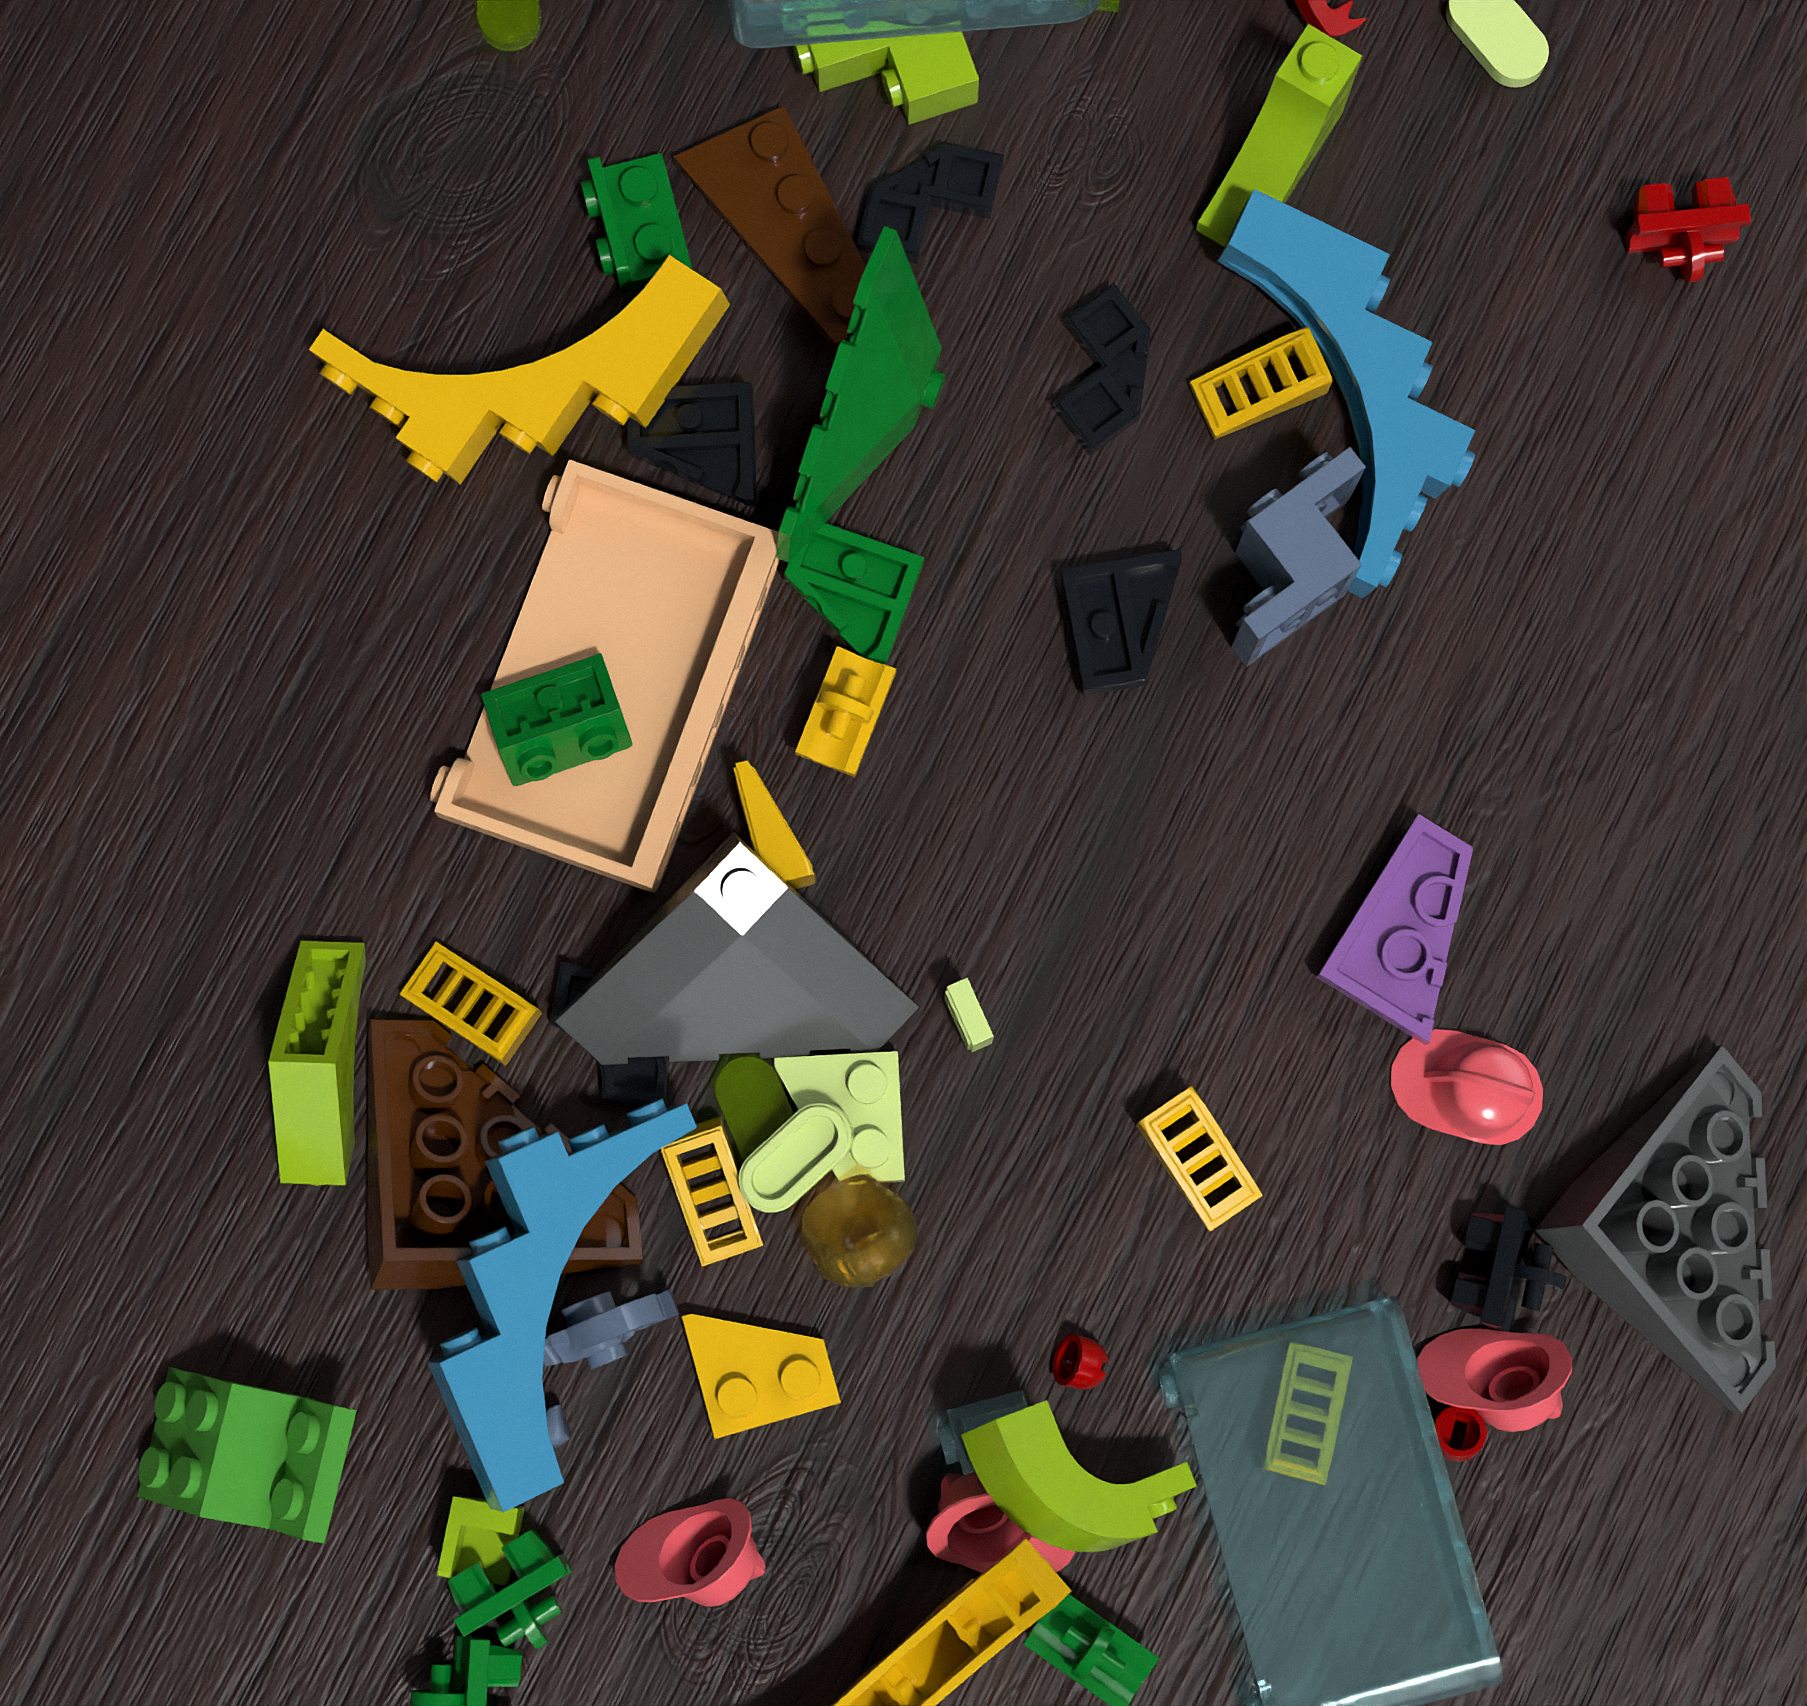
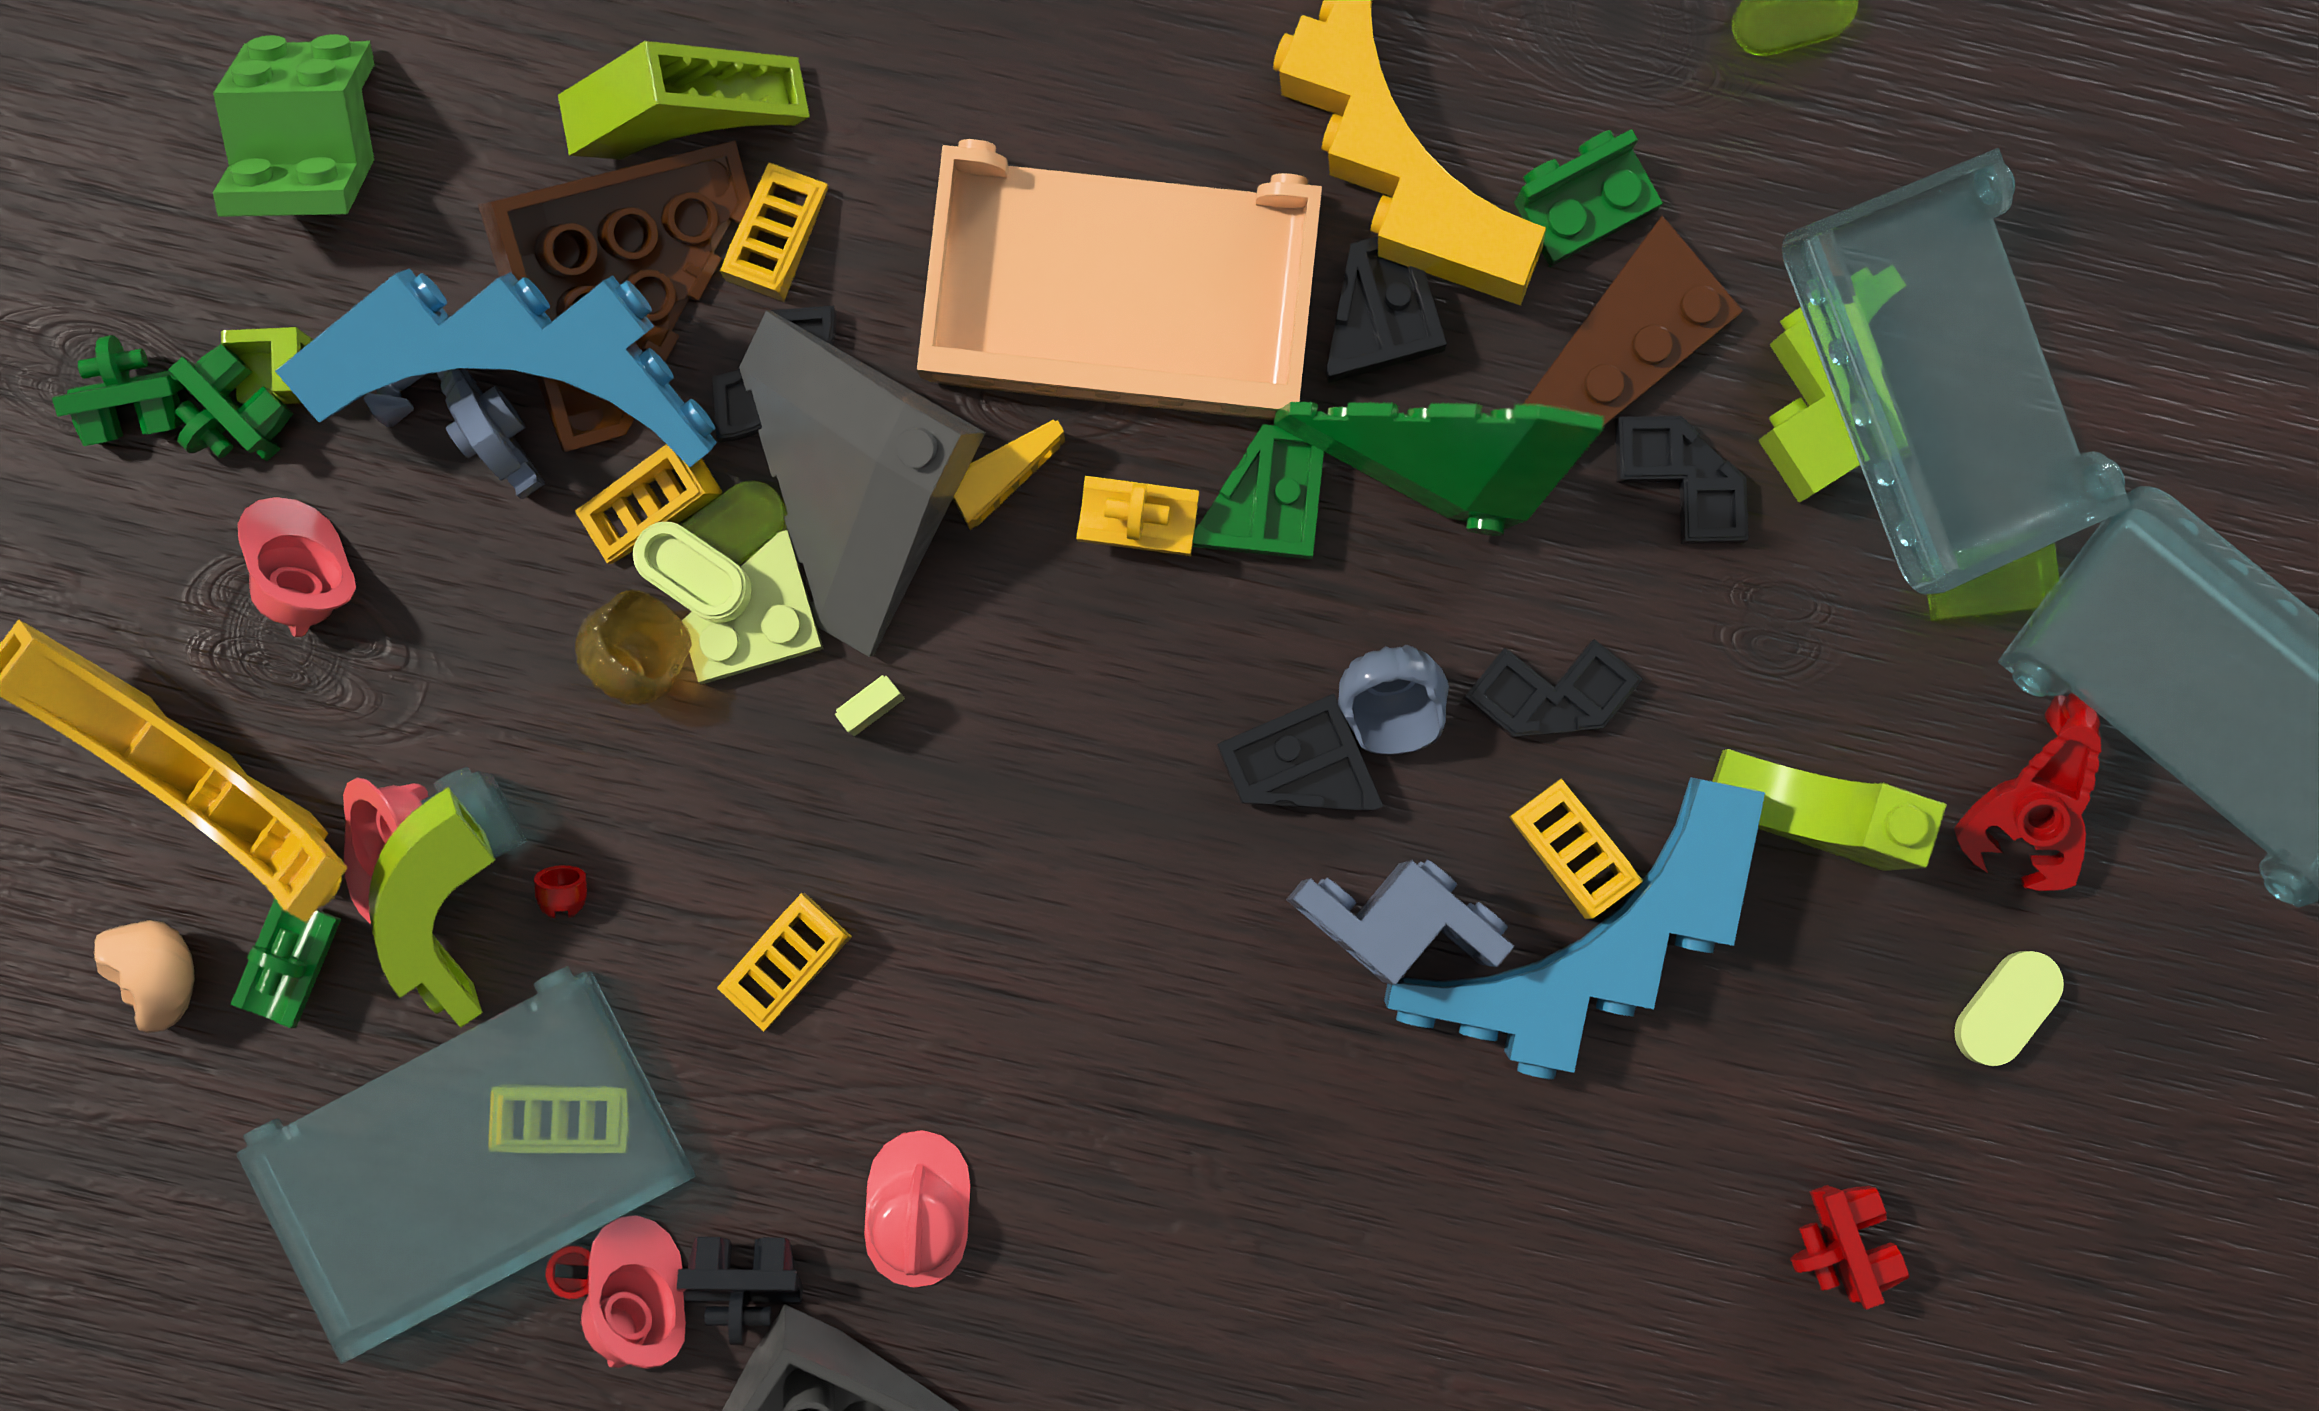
camera: 70 degrees right, 5 degrees up
(556, 720) = (1064, 240): green bracket -> none
(757, 1373) = (484, 587): yellow wing -> none
(1082, 512) = (1394, 700): none -> sand blue hair
(1403, 930) = (1053, 1111): medium lavender wing -> none

